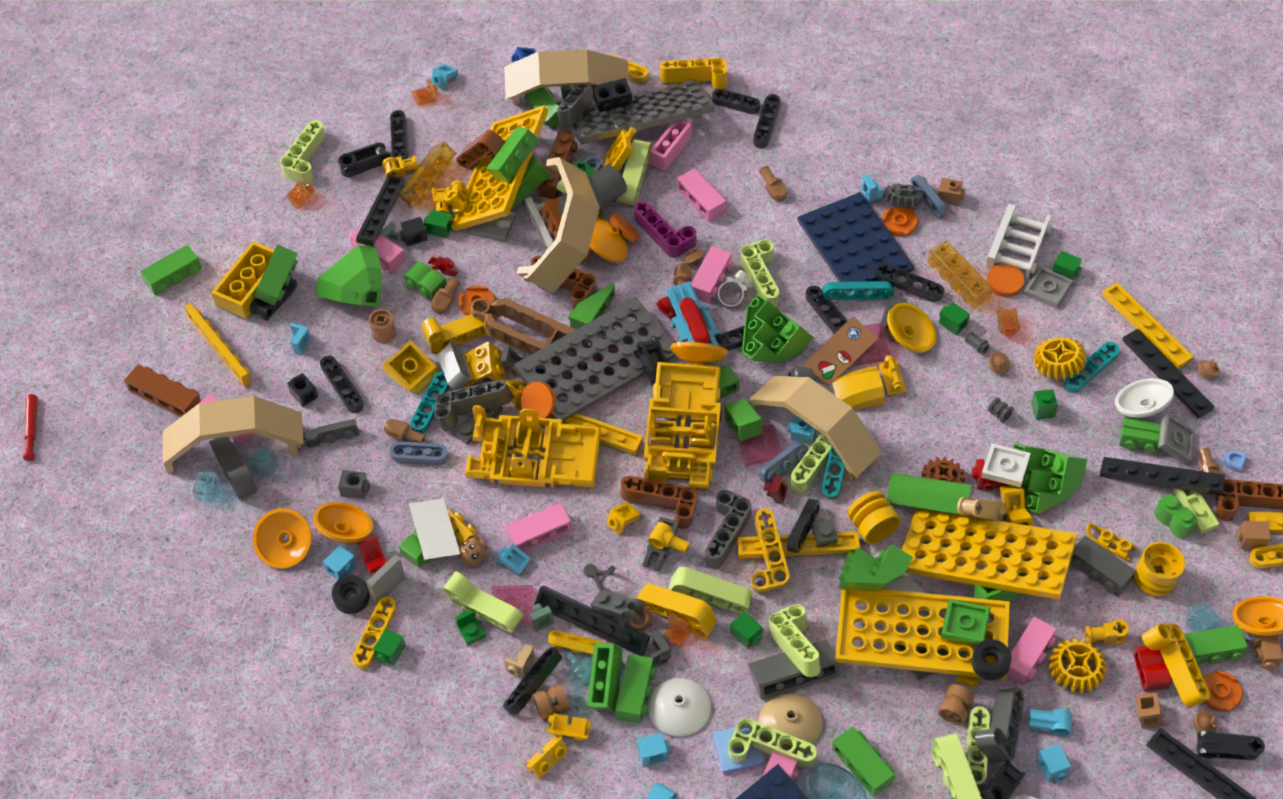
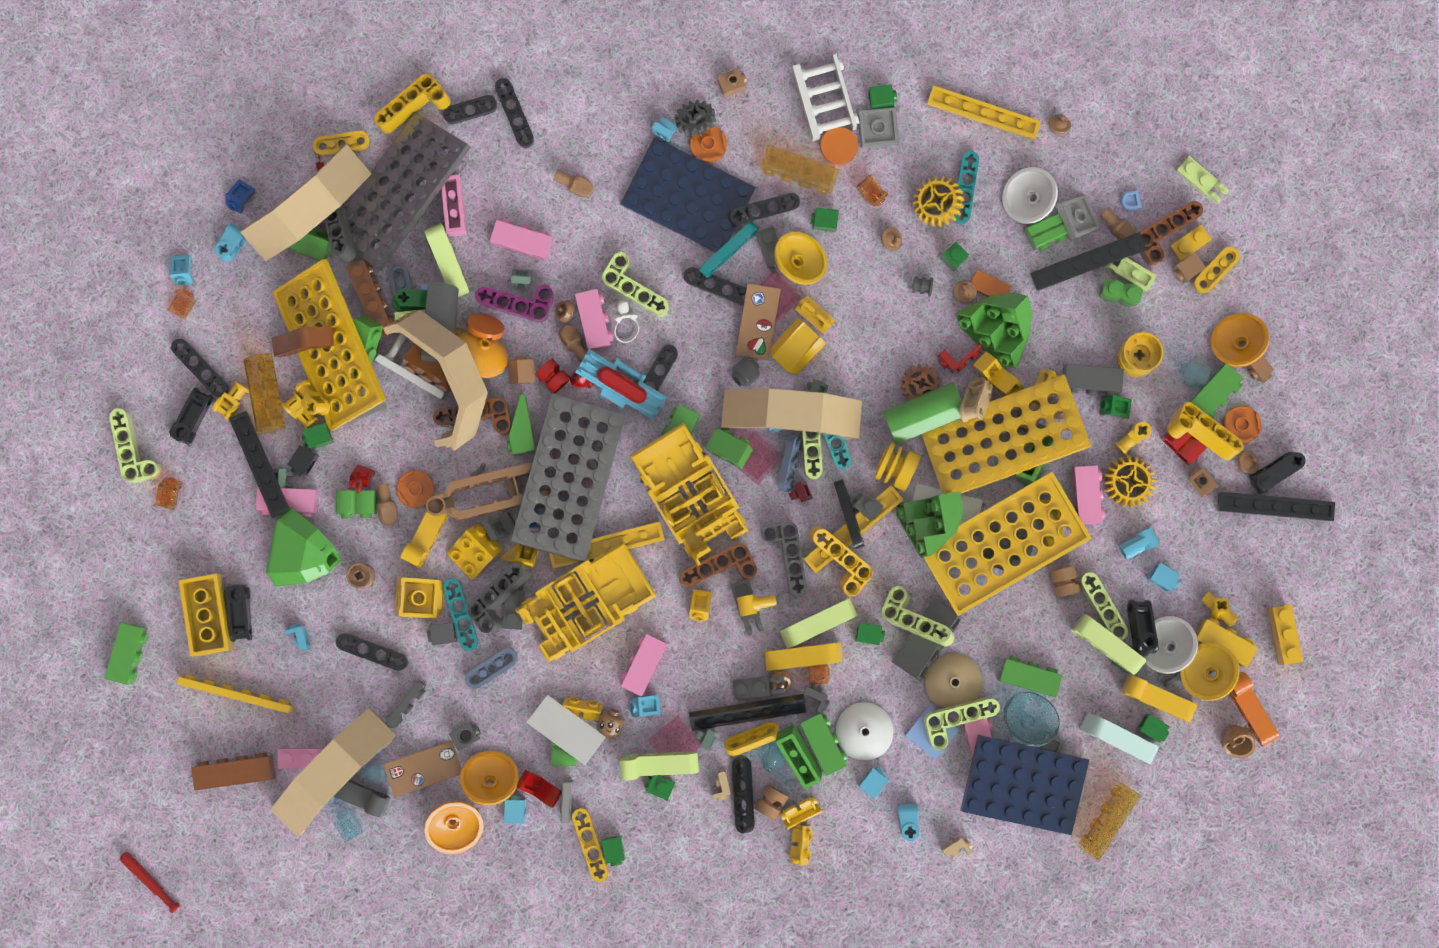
camera: 40 degrees left, 30 degrees up
(276, 275) = (233, 600): bright green brick -> none
(299, 483) = (423, 769): none -> medium nougat sticker
(302, 389) = (354, 683): black brick -> none
(346, 584) = (540, 839): black tyre -> none
(402, 431) = (461, 660): medium nougat arm -> none
(404, 404) = (442, 634): none -> dark grey brick
(454, 366) = (455, 570): light grey beam -> none
(492, 77) = (230, 240): none -> medium azure piece
(512, 154) = (340, 336): bright green brick -> none
(539, 398) = (556, 558): orange tile -> none
(591, 571) = (710, 668): dark grey piece -> none
(612, 95) = (361, 194): black brick -> none
(620, 149) = (419, 254): yellow plate -> none
(626, 271) = (521, 370): none -> medium nougat brick
(647, 289) = (553, 376): none -> red wheel
(650, 354) = (617, 447): black piece -> none
(680, 217) = (521, 276): none -> sand green tile
(699, 353) = (655, 421): light orange dish -> none
(771, 334) = (690, 347): bright green brick -> none
(929, 195) = (716, 100): sand blue plate -> none
(965, 622) = (1033, 516): bright green tile -> none
(981, 345) = (859, 229): dark grey pin -> none
(991, 648) = (1082, 528): black tyre -> none
(1001, 739) = (1112, 576): dark grey beam -> none
(1005, 465) = (968, 345): white plate -> none
(1034, 434) = (965, 291): none -> medium nougat hat
(1055, 440) = (989, 285): none -> orange tile
(1108, 537) = (1079, 349): yellow piece -> none
(1108, 599) = (1115, 406): none -> green bracket
(1167, 371) = (1028, 149): black plate -> none

